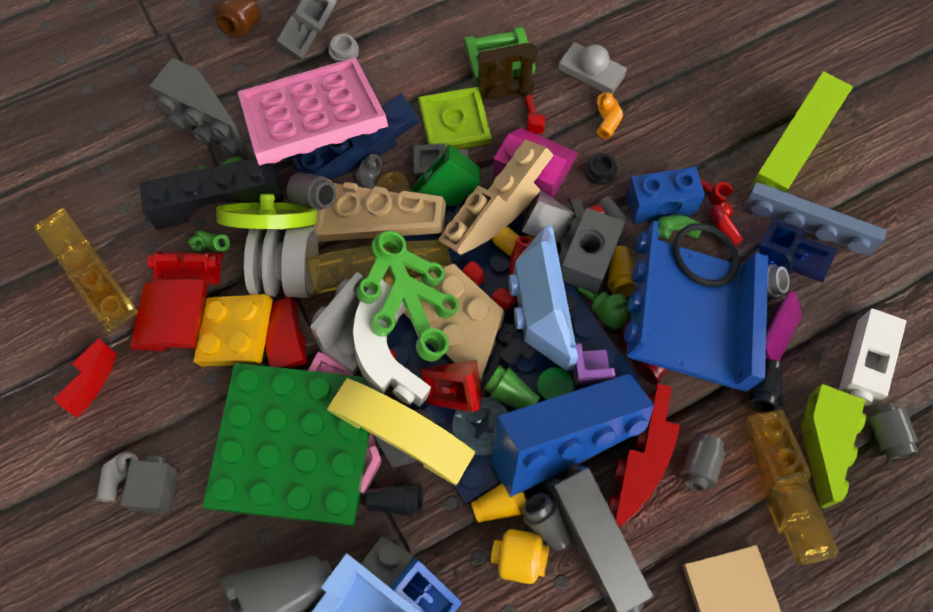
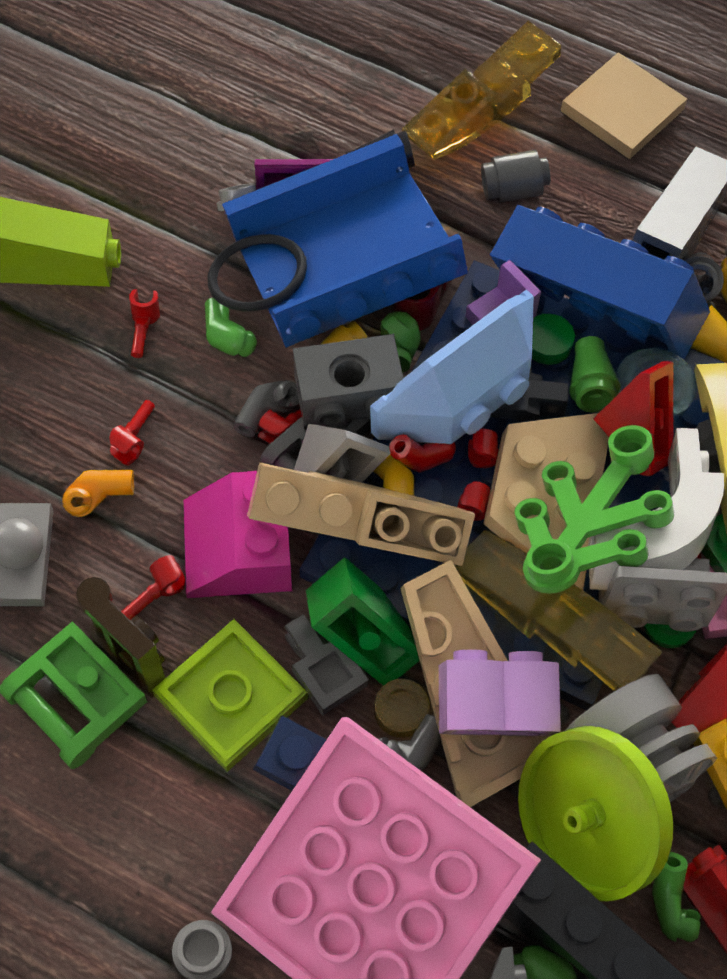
camera: 125 degrees left, 5 degrees down
(311, 191) = (508, 786): dark grey brick -> none
(352, 206) = (499, 696): none -> lavender brick
(601, 169) = (195, 455): black plate -> none
(632, 139) = (124, 442): none -> red hand
(643, 470) = (609, 212): red slope -> none
(664, 194) = (197, 355): blue brick -> none
(720, 217) = (187, 286): red arm -> none
(790, 249) = (188, 185): clear blue brick -> none
(815, 219) = (129, 208): sand blue plate -> none
(829, 435) = (399, 81): lime slope -> none
(873, 356) = (277, 78): white brick -> none
(893, 431) = (351, 34): dark grey brick -> none

